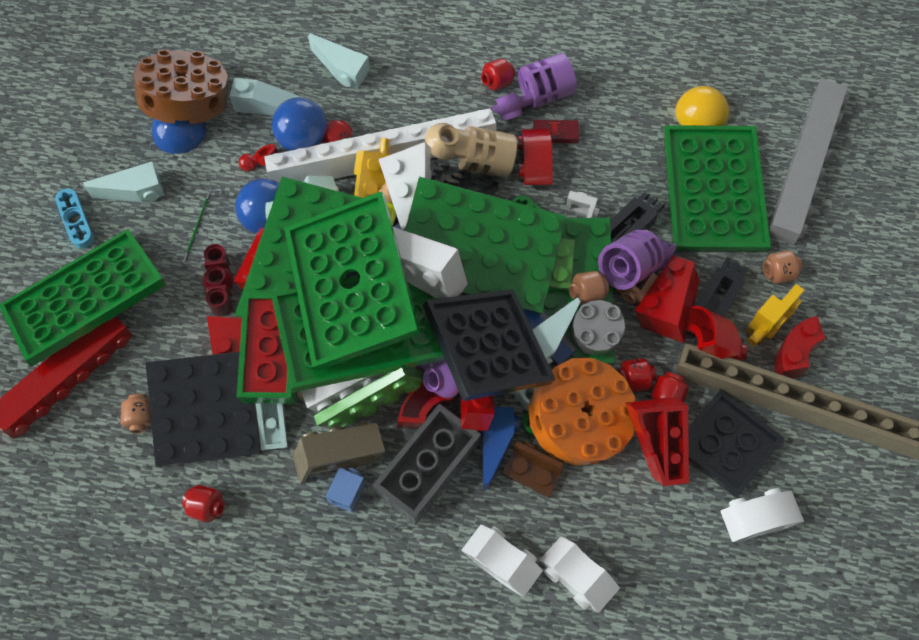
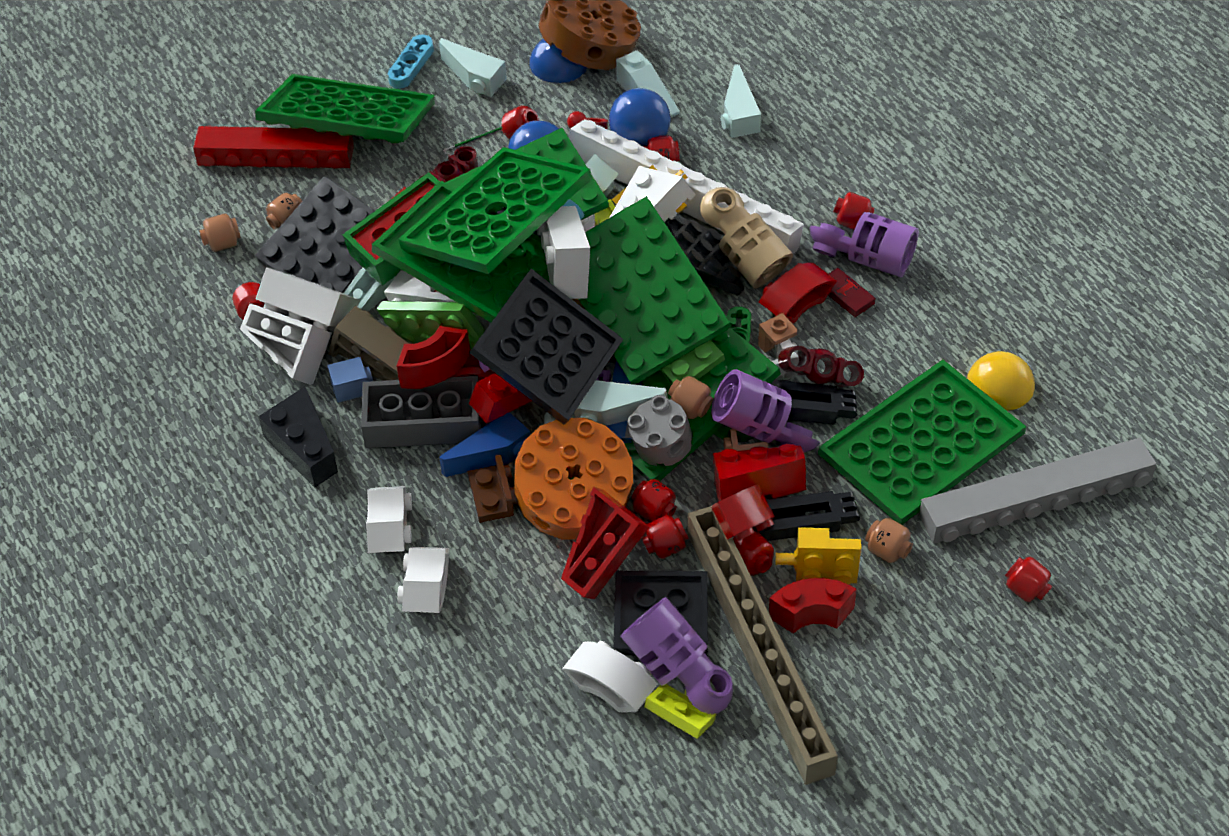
camera: 50 degrees right, 15 degrees down
(108, 475) = (220, 232): none -> nougat head
(218, 197) = (517, 117): none -> red head
(251, 465) = (304, 299): none -> white brick
(270, 506) = (288, 341): none -> white wedge
(371, 564) = (300, 437): none -> black wedge
(411, 424) = (433, 359): none -> red brick
(563, 192) = (775, 332): none -> nougat bracket
(616, 193) = (833, 366): none -> dark red piece
(788, 462) = (674, 649): none -> medium lavender cylinder
(815, 491) = (678, 710): none -> neon yellow plate
(870, 218) = (1028, 579): none -> red head

